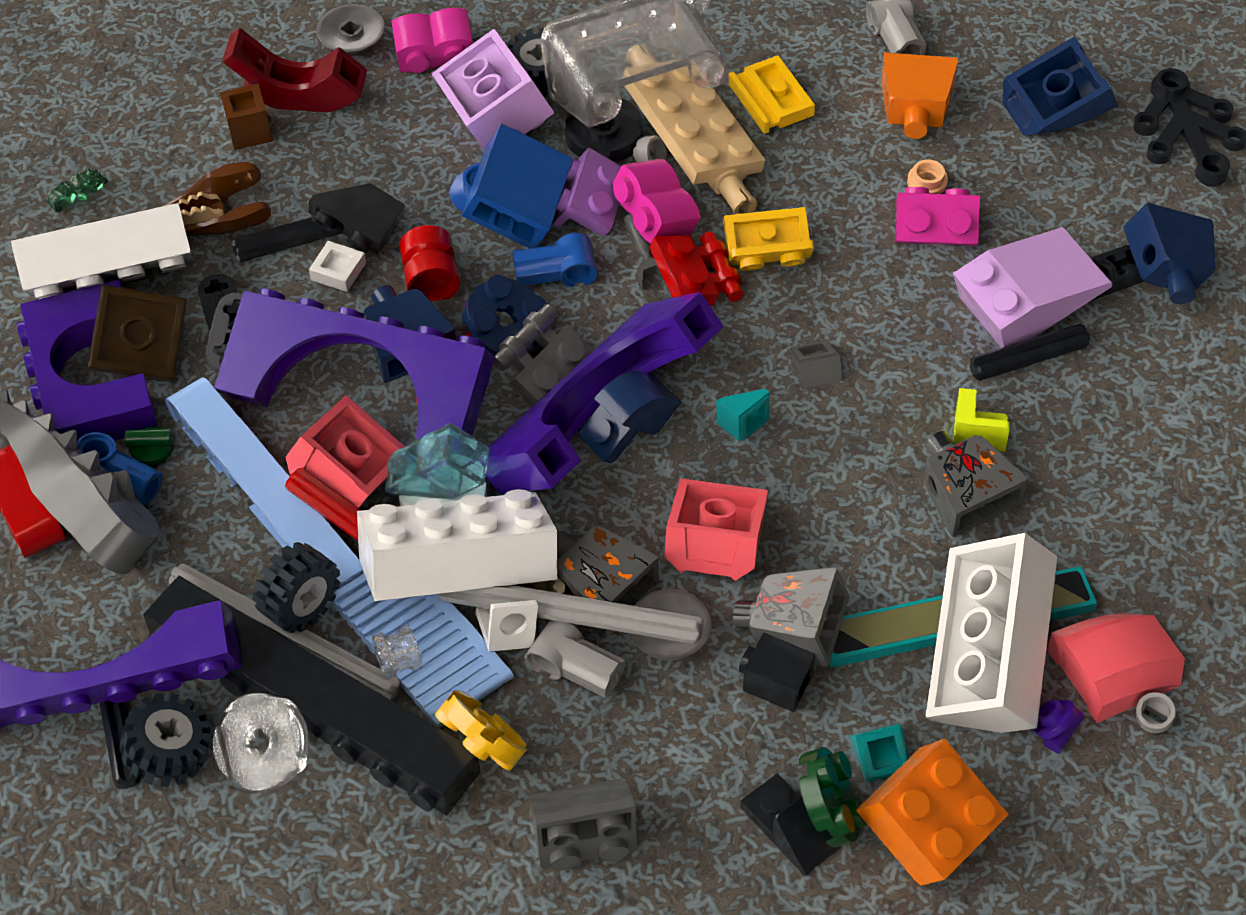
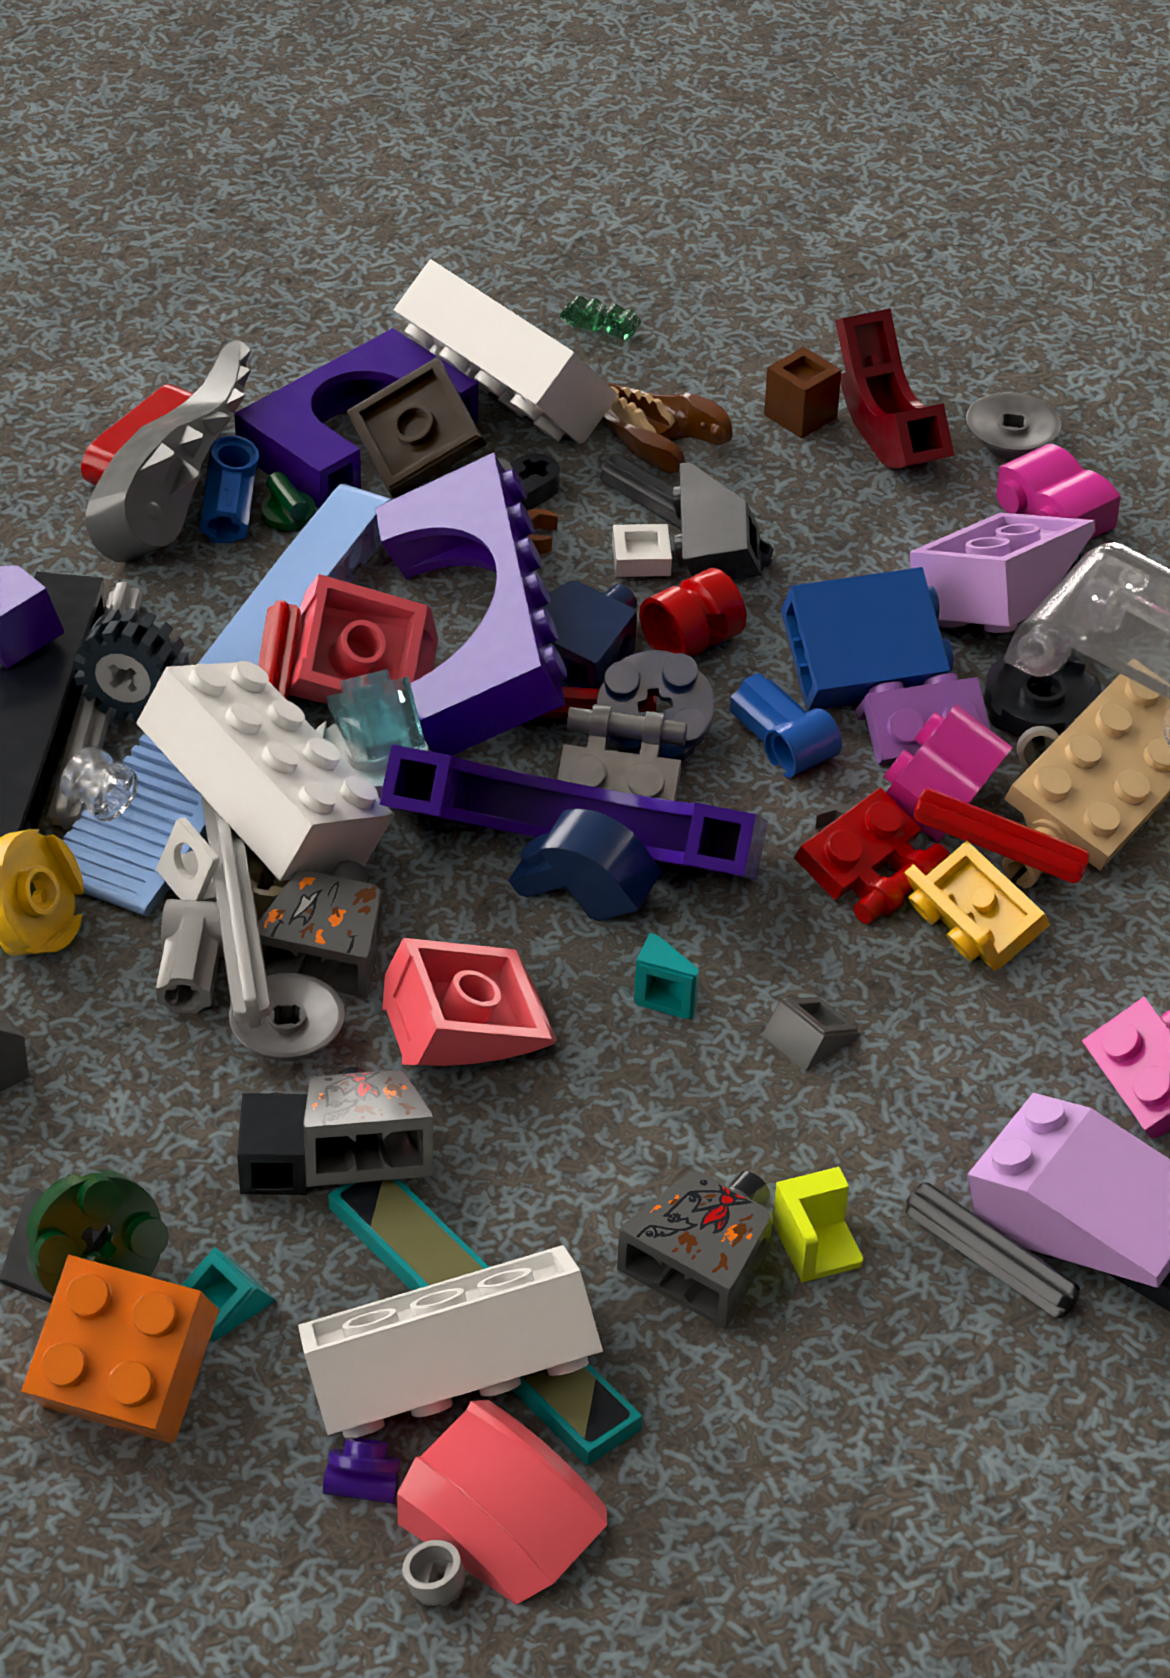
camera: 60 degrees right, 10 degrees down
(732, 197) = (1001, 835): none -> red axle

